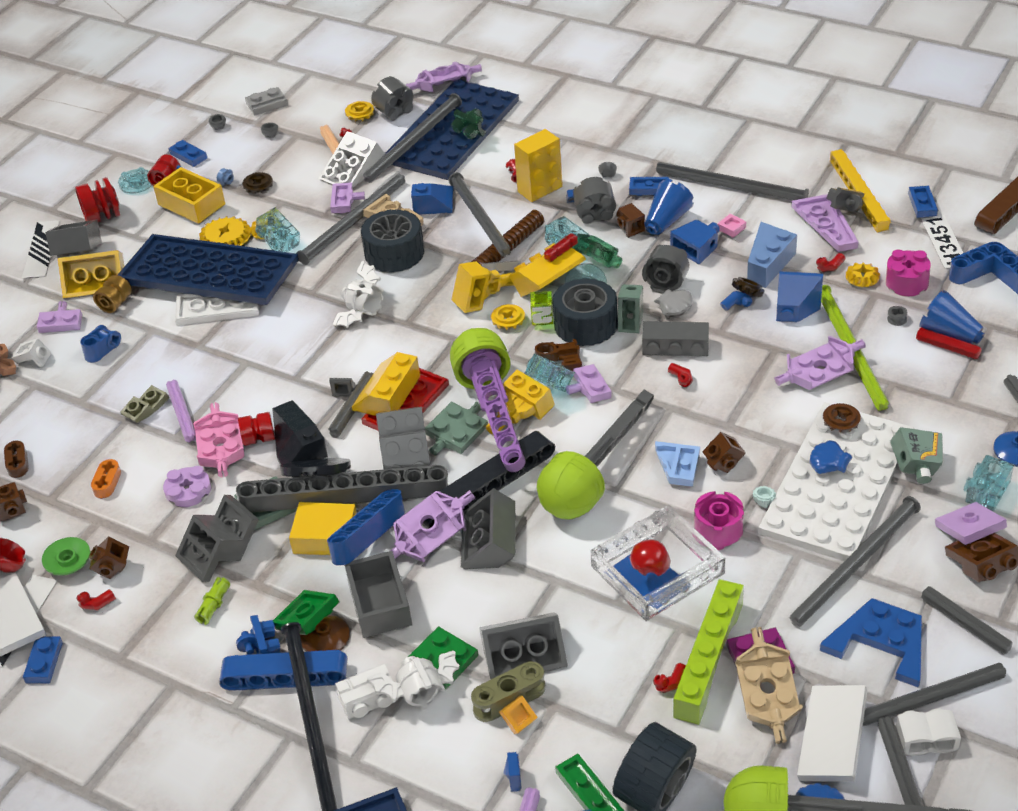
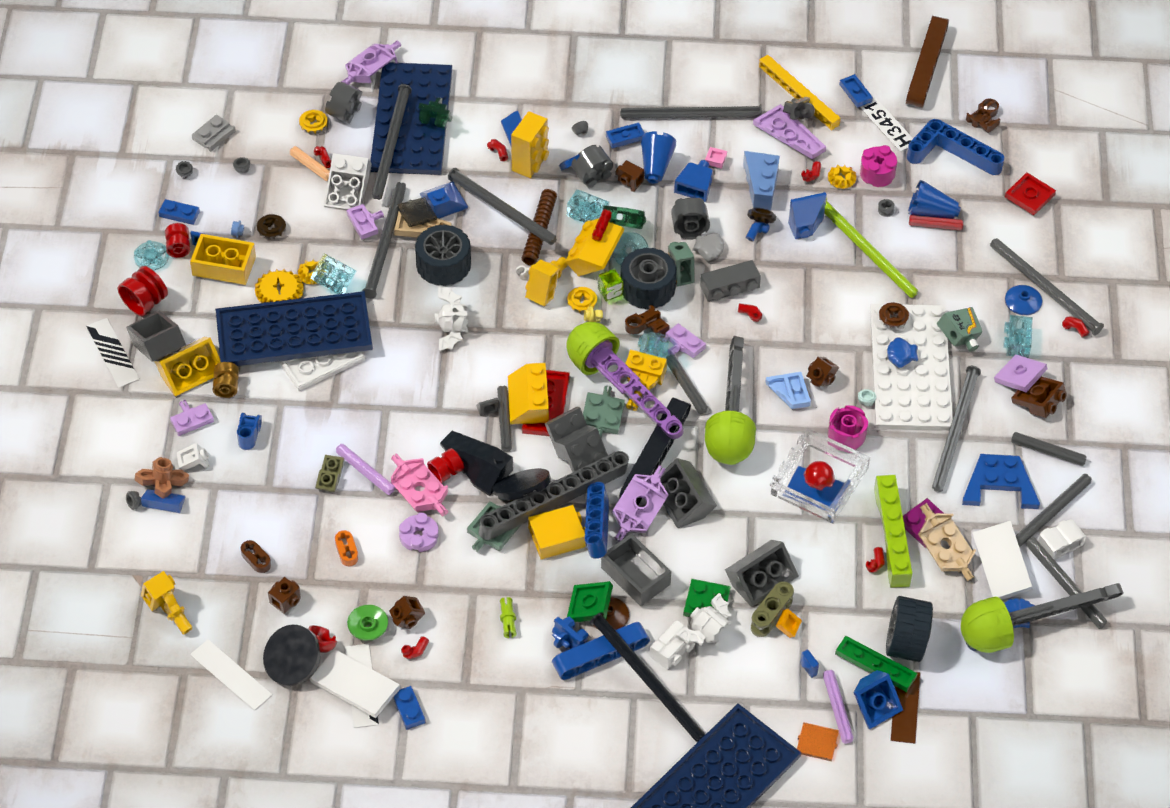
camera: 30 degrees left, 10 degrees up
(216, 538) = (482, 567): dark grey bracket -> none
(395, 200) = (417, 212): none -> clear smoke piece
(506, 266) = (551, 252): light grey plate -> none
(507, 333) = (593, 316): none -> light yellow plate
(565, 421) = (686, 384): none -> dark grey axle
(834, 356) = (857, 259): lavender plate -> none

